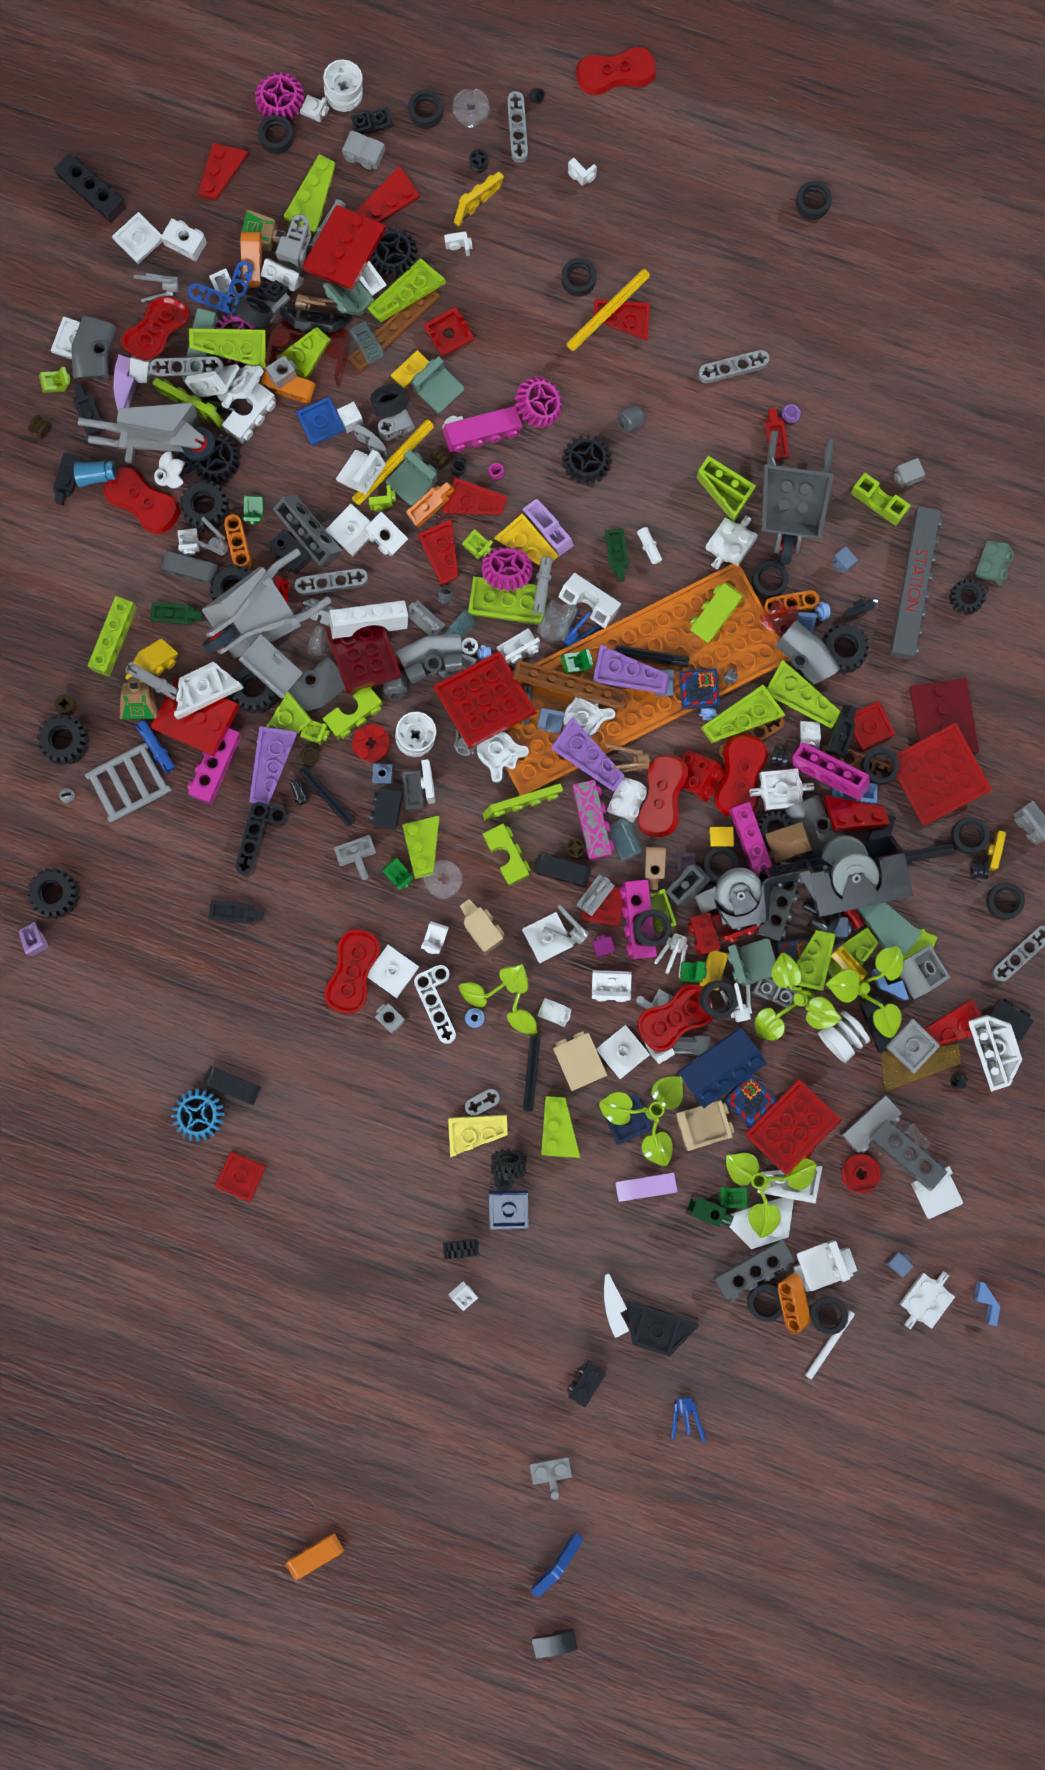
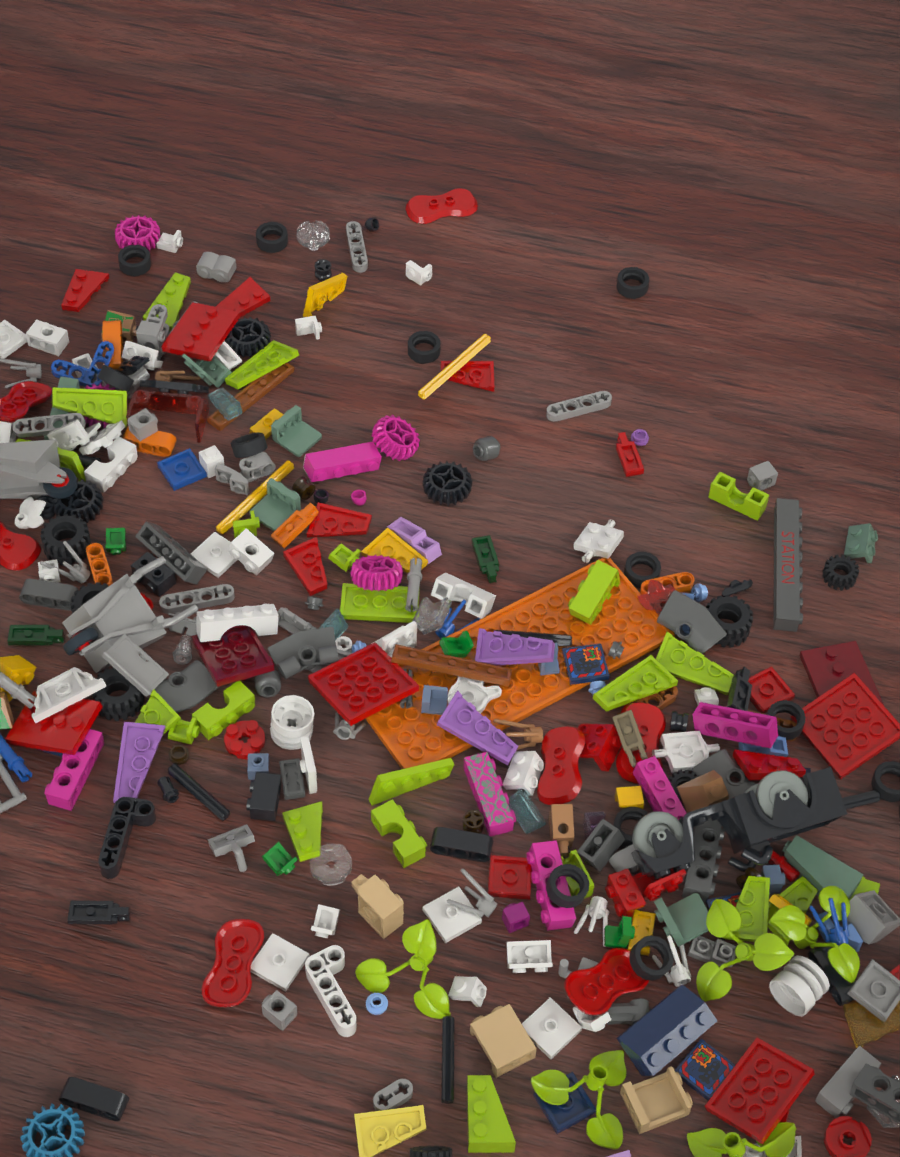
camera: 10 degrees left, 30 degrees down
(307, 352) = (170, 407): lime wing -> none
(343, 85) = (196, 221): white wheel -> none
(361, 470) = (225, 502): white bracket -> none
(372, 122) = (228, 248): black slope -> none
(449, 320) = (306, 384): red piece -> none
(500, 752) = (382, 733): white tile -> none
(595, 895) = (501, 863): light grey hinge -> none
(649, 545) = (517, 548): white axle -> none
(725, 487) = (586, 494): lime wedge -> none
(730, 775) = (629, 735): none -> dark tan hinge
(794, 501) = (655, 496): dark grey piece -> none
(844, 560) = (713, 549): sand blue plate -> none
(886, 992) = (838, 933): none -> blue plant

